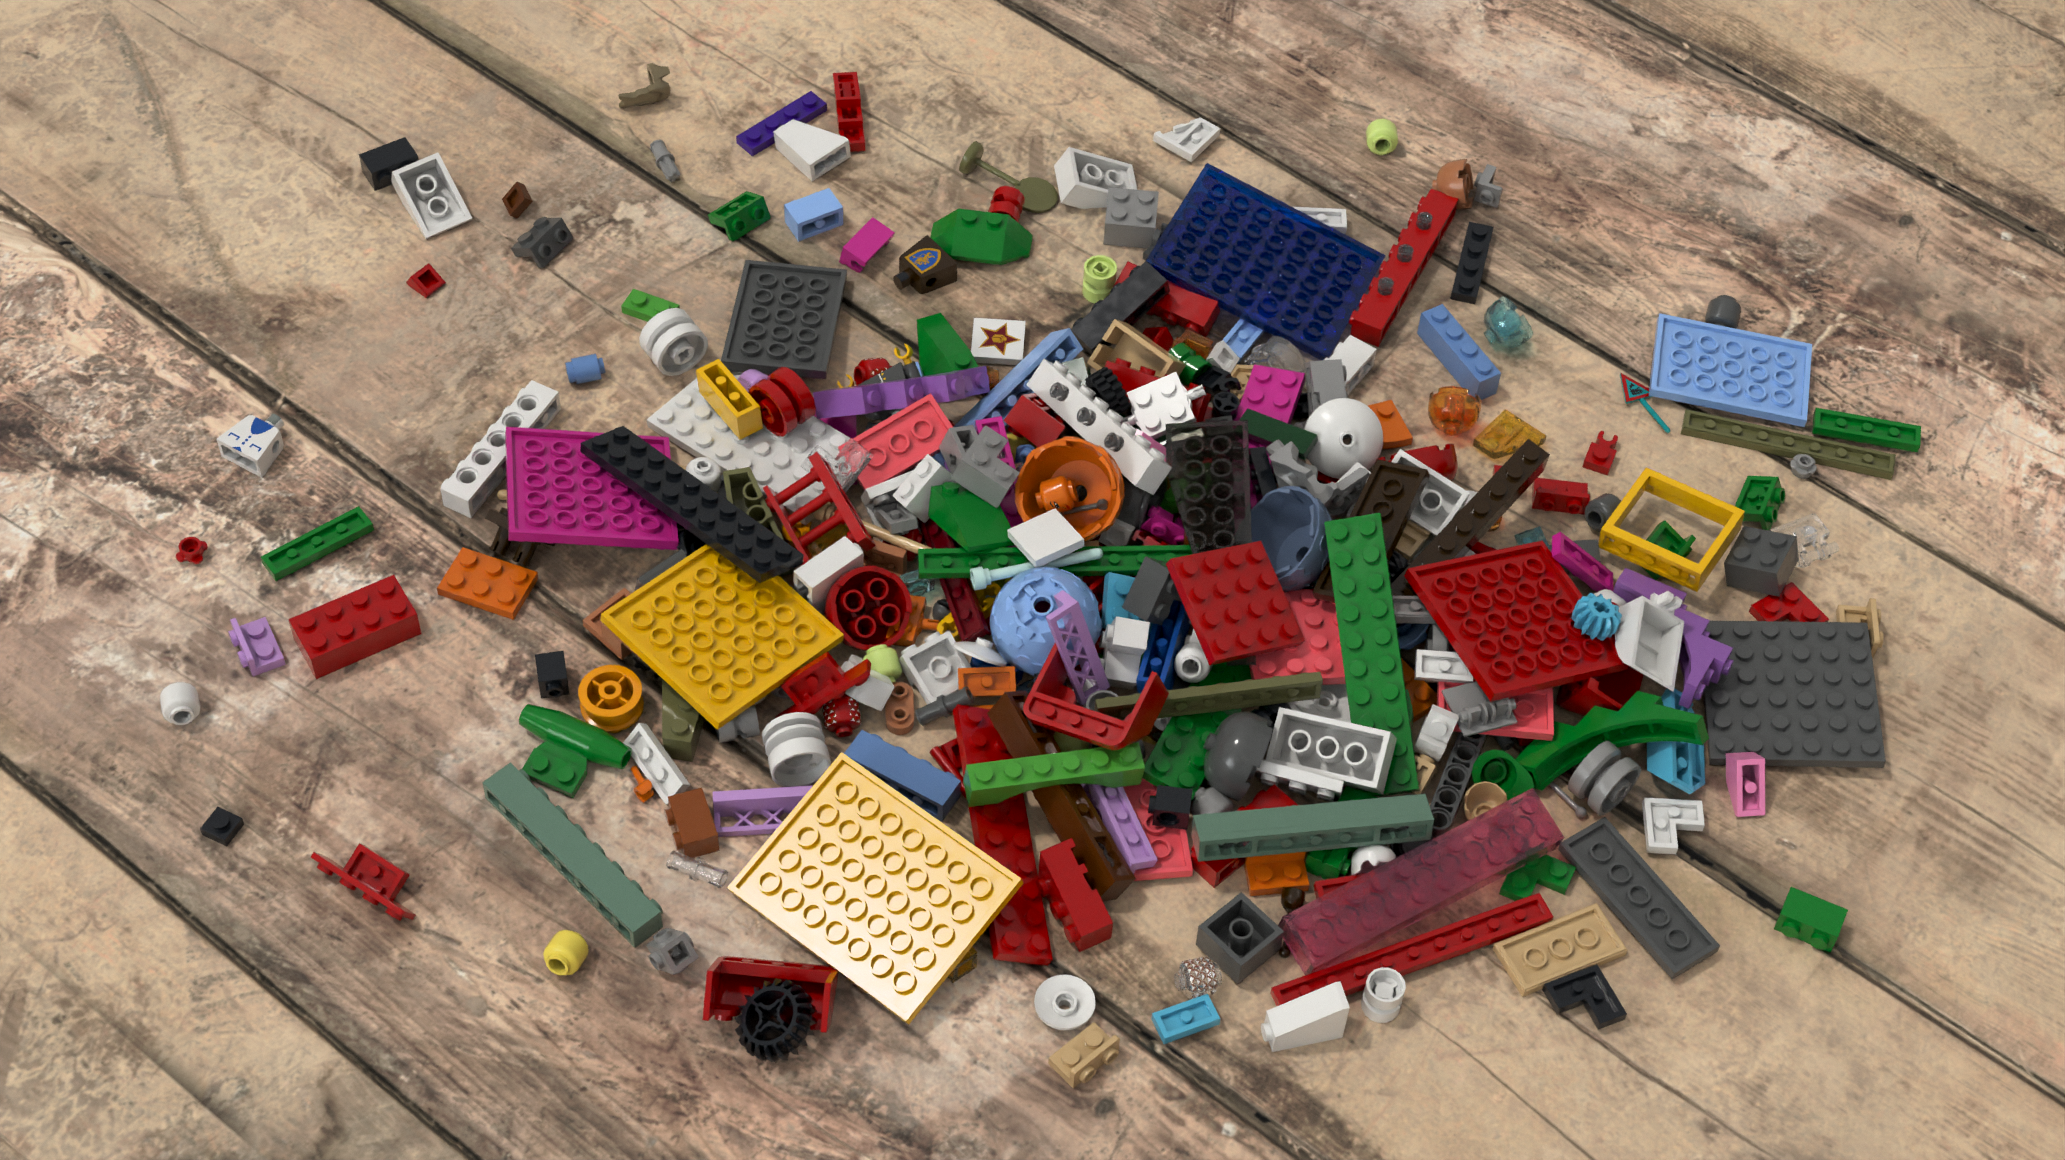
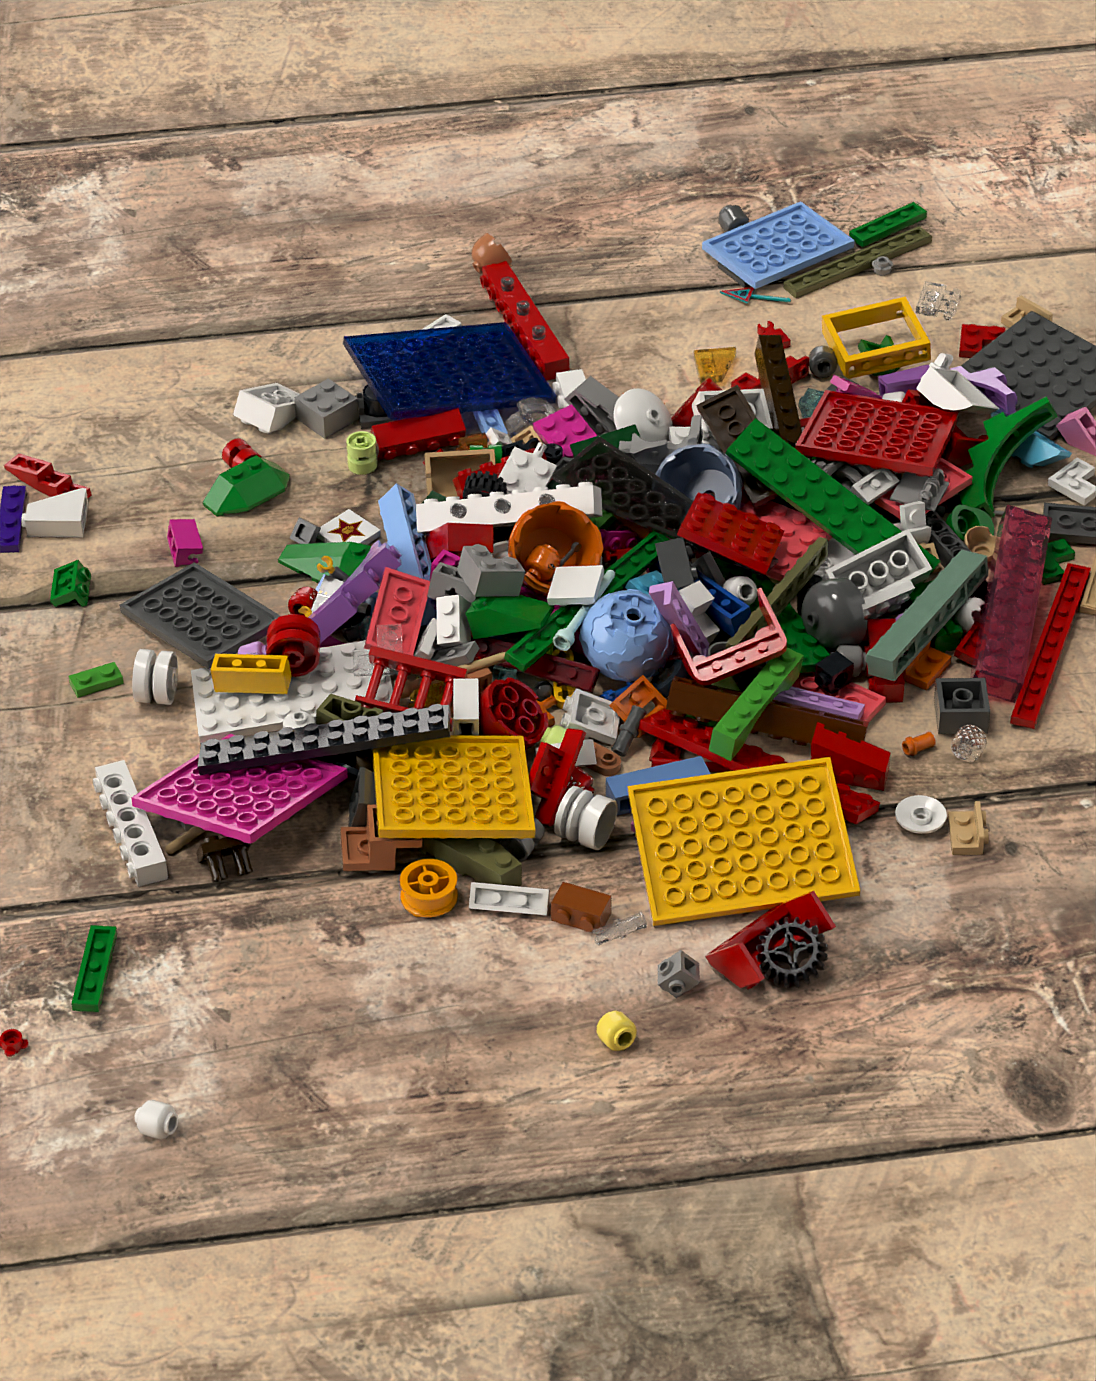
camera: 45 degrees left, 10 degrees down
(222, 826) = (292, 1160): black plate -> none
(257, 646) = (148, 1053): lavender bracket -> none
(355, 626) = (201, 987): red brick -> none
(371, 874) = (436, 1096): red bracket -> none
(487, 583) = (242, 900): orange plate -> none
(552, 674) = (369, 908): black brick -> none
(567, 748) = (443, 935): green plate -> none
(573, 855) = (536, 983): sand green brick -> none
(585, 369) = (112, 740): medium blue brick -> none
(644, 789) = (520, 917): orange hand -> none
(750, 802) = (606, 859): lavender fence -> none
(813, 214) = (121, 549): light blue brick -> none
(925, 267) = (242, 524): dark brown torso -> none
(962, 313) = (305, 532): none -> plate
(981, 650) = (612, 681): white dish -> none
(1038, 193) = (176, 444): olive piece -> none
(1126, 303) = (407, 450): black brick -> none
(1162, 937) = (912, 746): none -> orange pin
(1185, 1018) = (990, 769): medium azure plate -> none
(1188, 139) = (290, 344): white wing -> none
(1291, 900) = (955, 669): dark brown hinge -> none
(1307, 1019) = (1053, 710): white slope -> none
(1381, 137) = (405, 262): yellowish green head -> none
(1383, 995) = (1069, 671): white wheel -> none
(1453, 410) = (671, 369): clear orange cylinder -> none
(1458, 352) = (625, 341): medium blue brick -> none
(1471, 263) = (556, 293): black plate -> none
(1486, 191) = (514, 248): light grey bracket -> none
(1505, 325) = (630, 305): clear light blue cylinder -> none
(1596, 616) = (916, 398): medium azure gear -> none
(1604, 778) = (1021, 481): light grey wheel -> none
(1761, 500) = (885, 290): green bracket -> none
(1761, 561) = (941, 320): dark grey brick -> none

